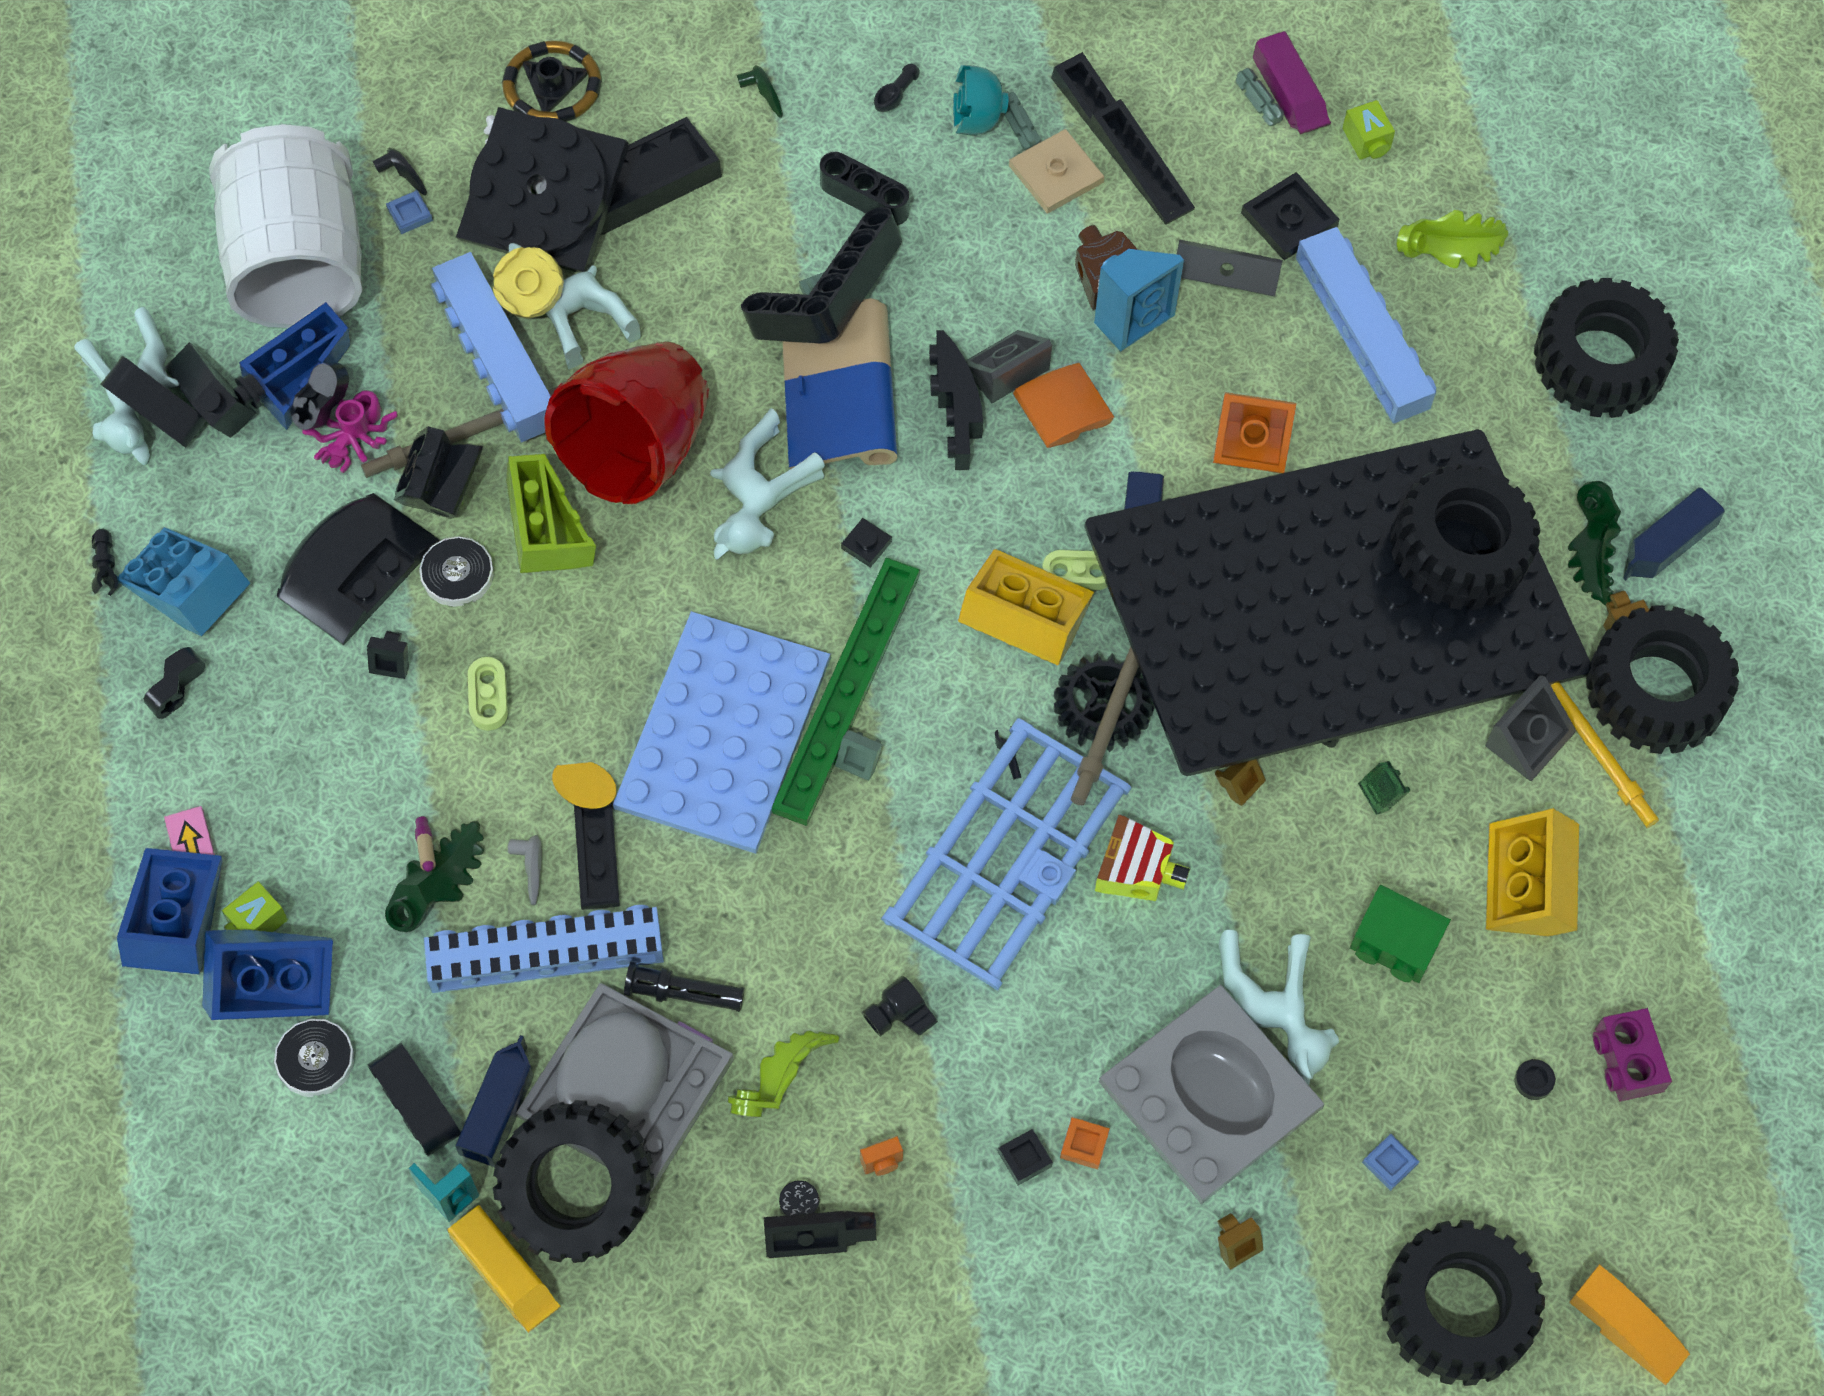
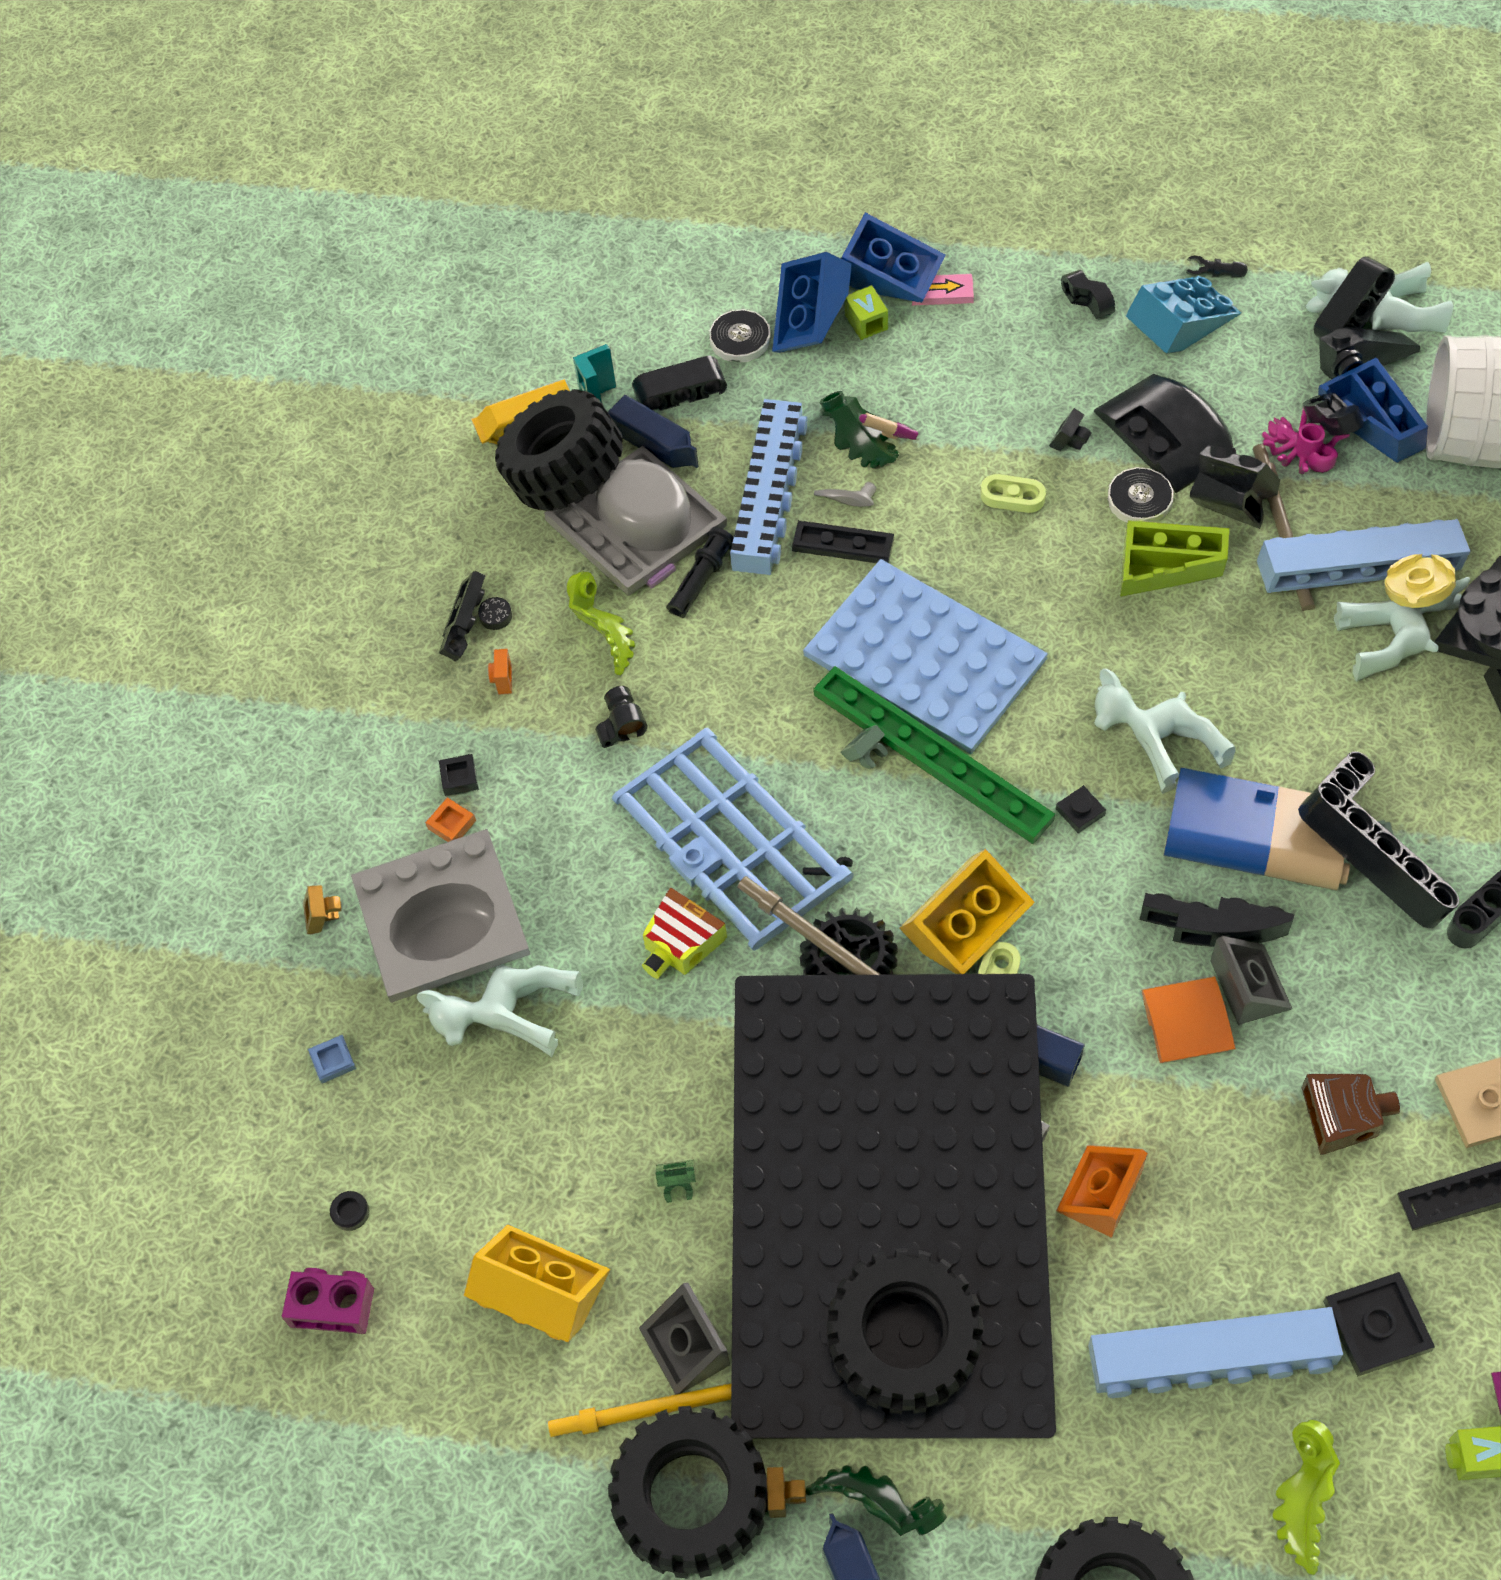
camera: 115 degrees right, 5 degrees down
(584, 784) = (906, 545): yellow sticker -> none
(628, 420) = (1248, 626): red piece -> none
(1136, 294) = (1282, 1094): dark azure slope -> none
(1241, 780) = (723, 1049): pearl gold tile -> none
(1249, 270) = (1320, 1231): dark grey tile -> none
(1399, 935) = (521, 1128): green slope -> none
(1430, 1343) = (204, 1093): black tyre -> none
(1630, 1324) = (101, 1198): light orange slope -> none

